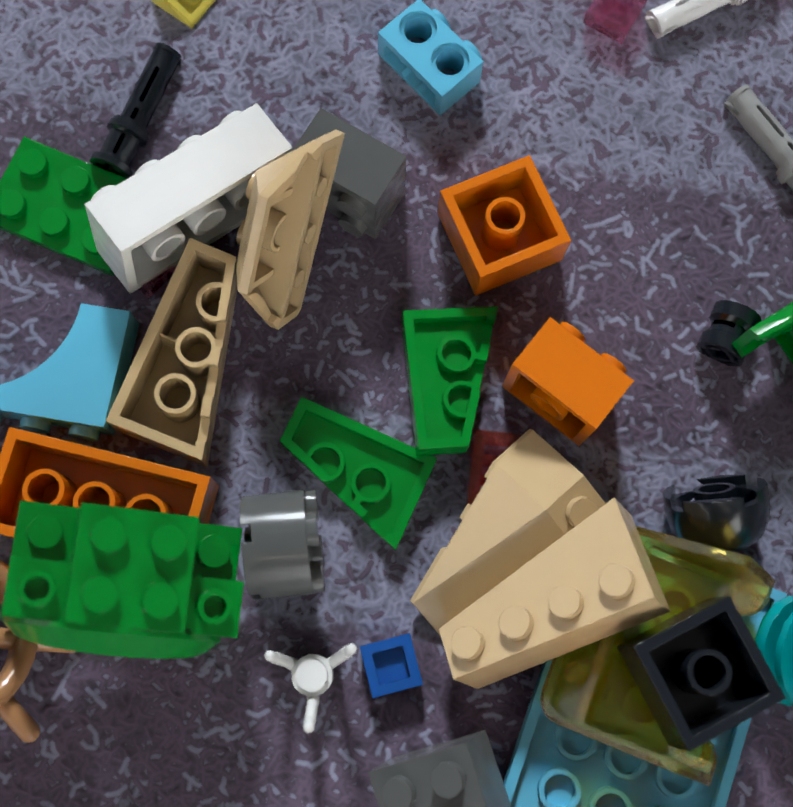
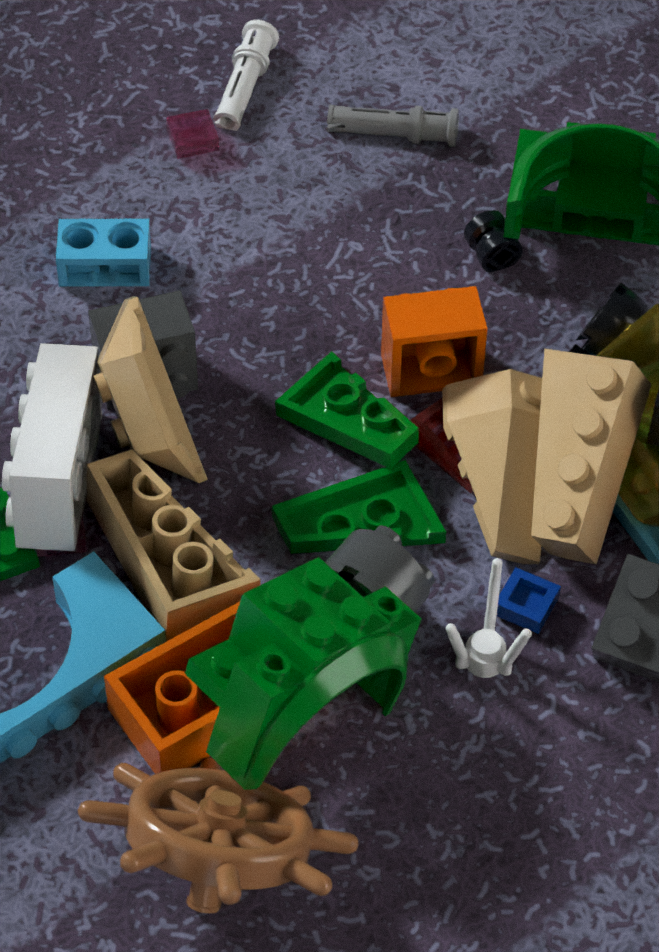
camera: 45 degrees left, 25 degrees down
(502, 225) = (279, 299): orange brick -> none

